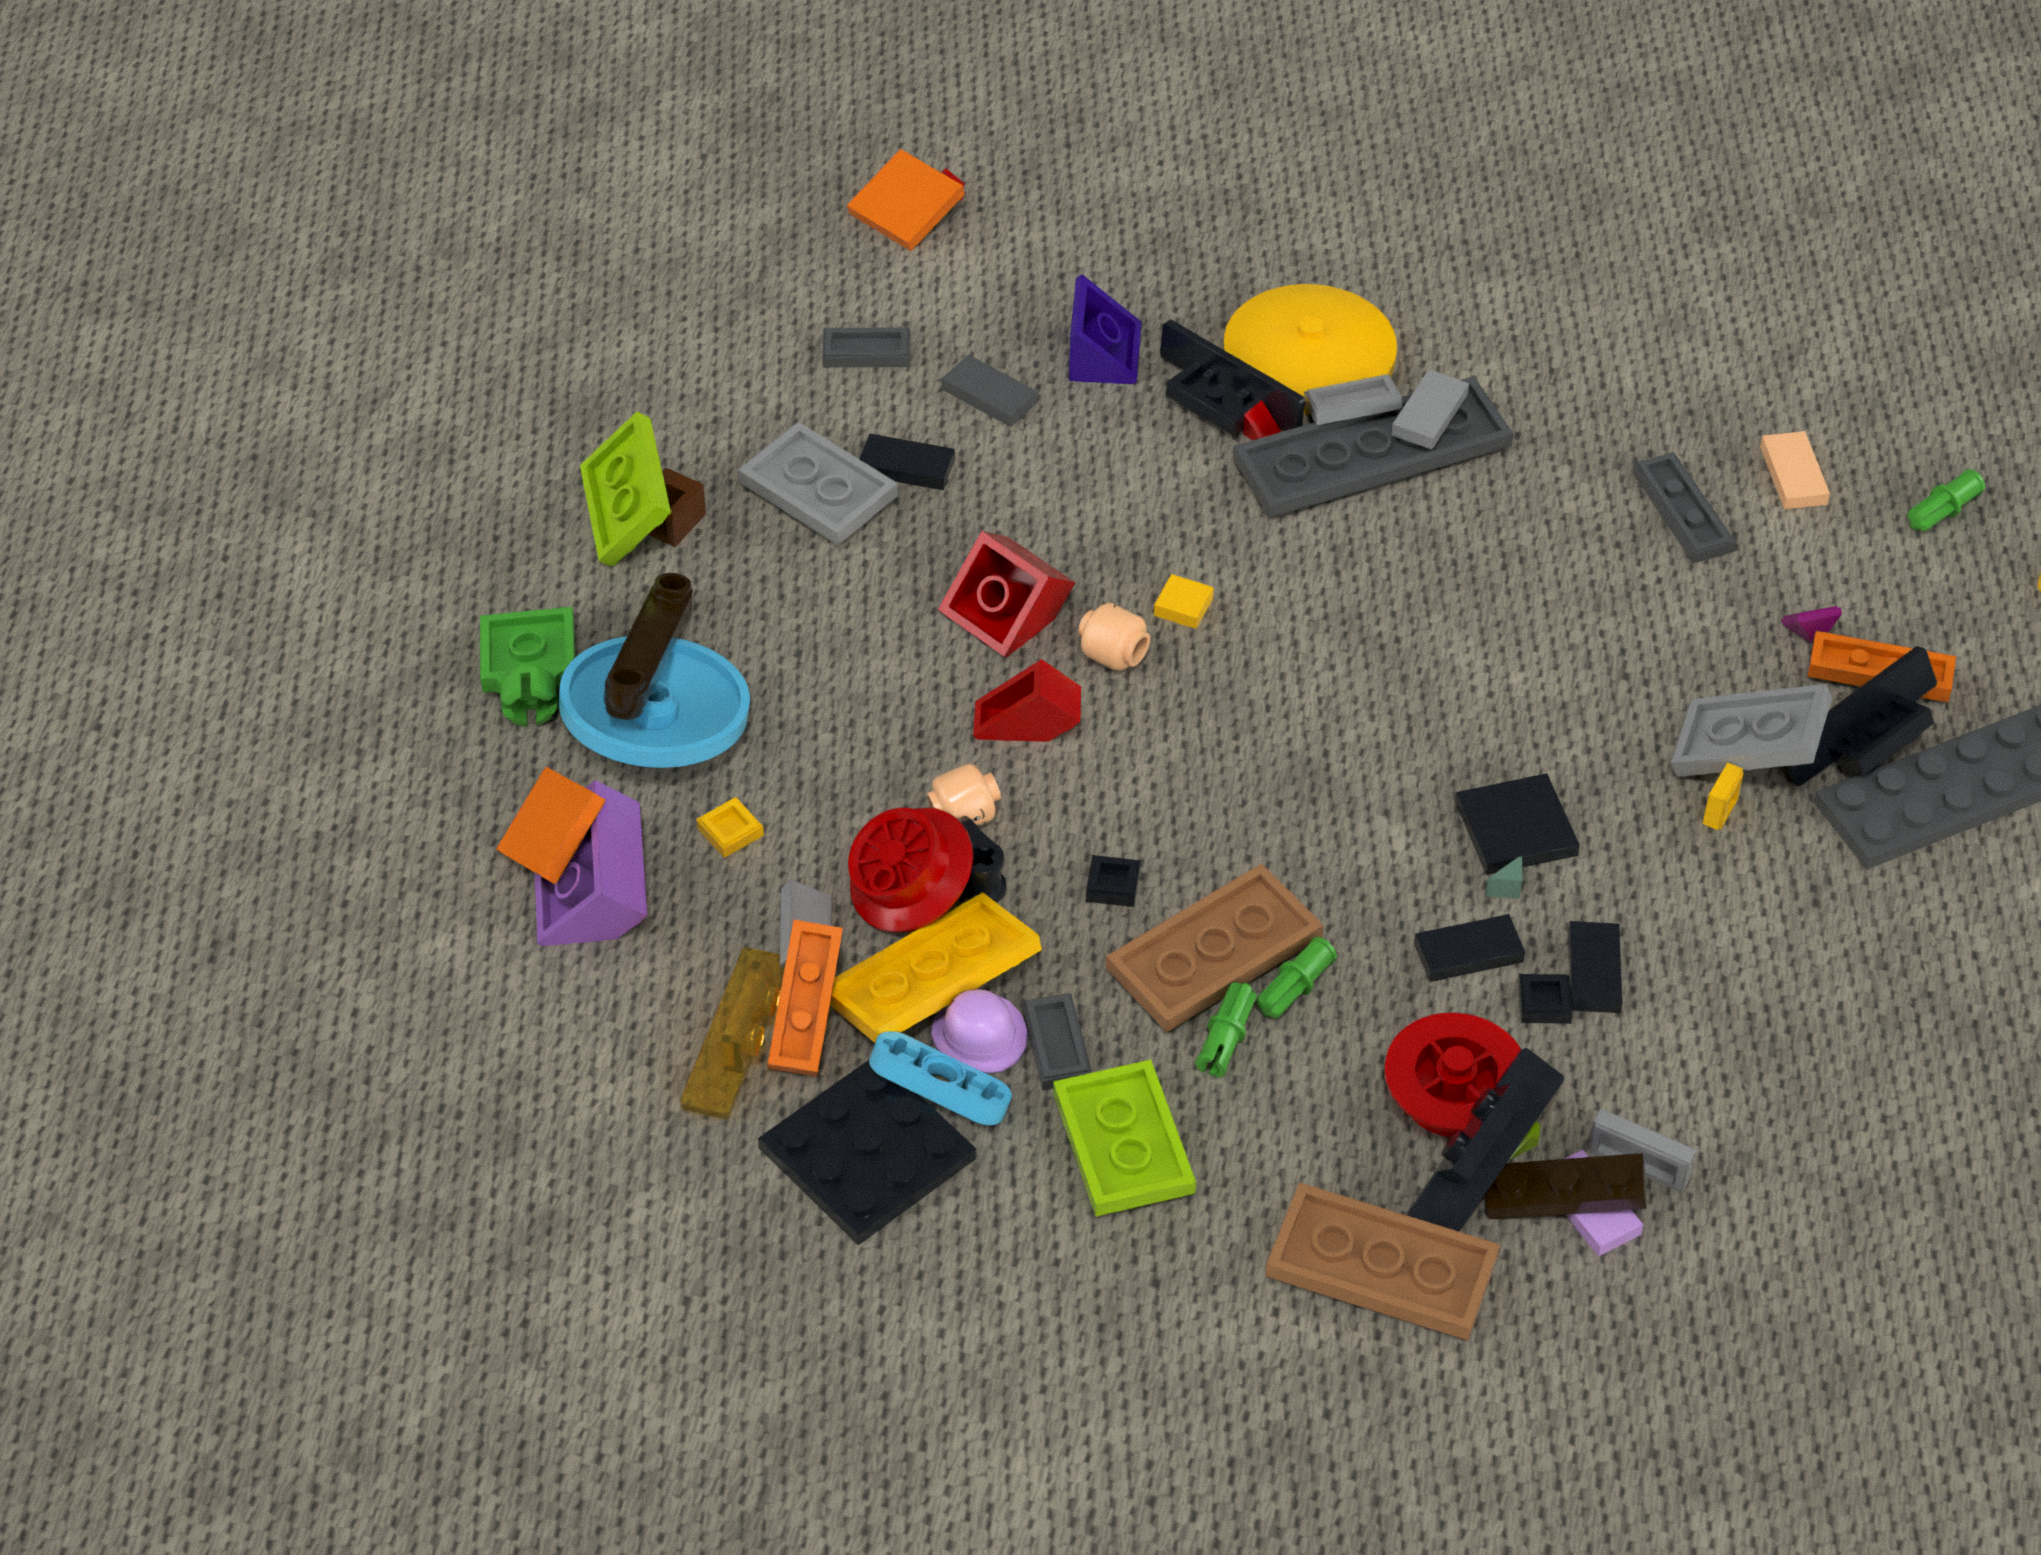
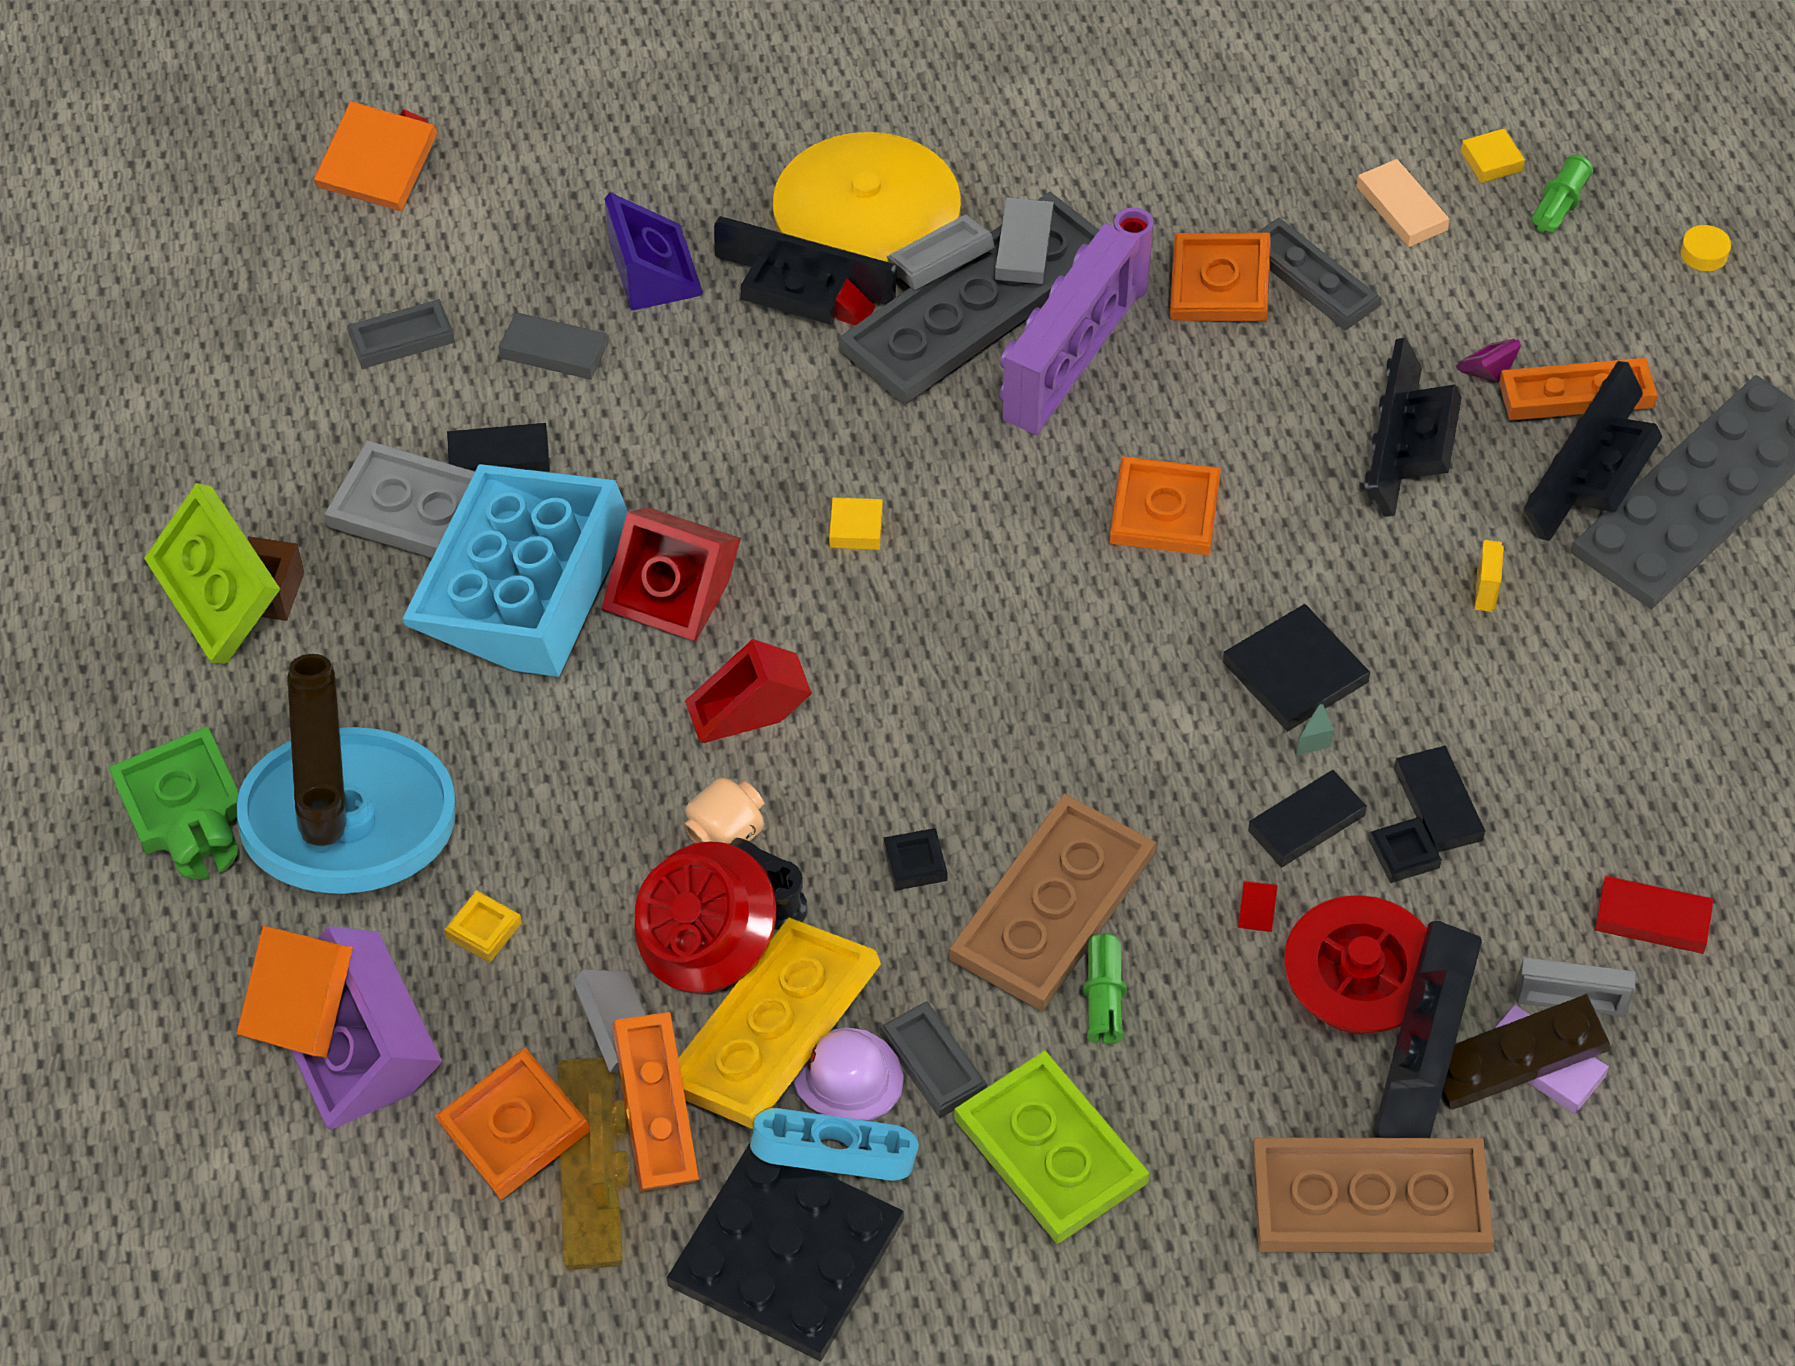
camera: 20 degrees left, 5 degrees up
(684, 982) = (513, 1123): none -> orange tile
(879, 554) = (520, 566): none -> medium azure slope
(1114, 636) = (805, 586): light nougat head -> none
(1296, 977) = (1150, 908): bright green axle -> none
(1391, 1004) = (1257, 906): none -> red piece
(1445, 484) = (1076, 319): none -> medium lavender hinge
(1461, 661) = (1165, 505): none -> orange tile
(1597, 487) = (1220, 277): none -> orange tile
(1709, 657) = (1413, 429): none -> black bracket
(1745, 1116) = (1654, 914): none -> red tile
(1752, 730) = (1492, 498): light grey plate -> none
(1897, 452) = (1492, 155): none -> yellow tile

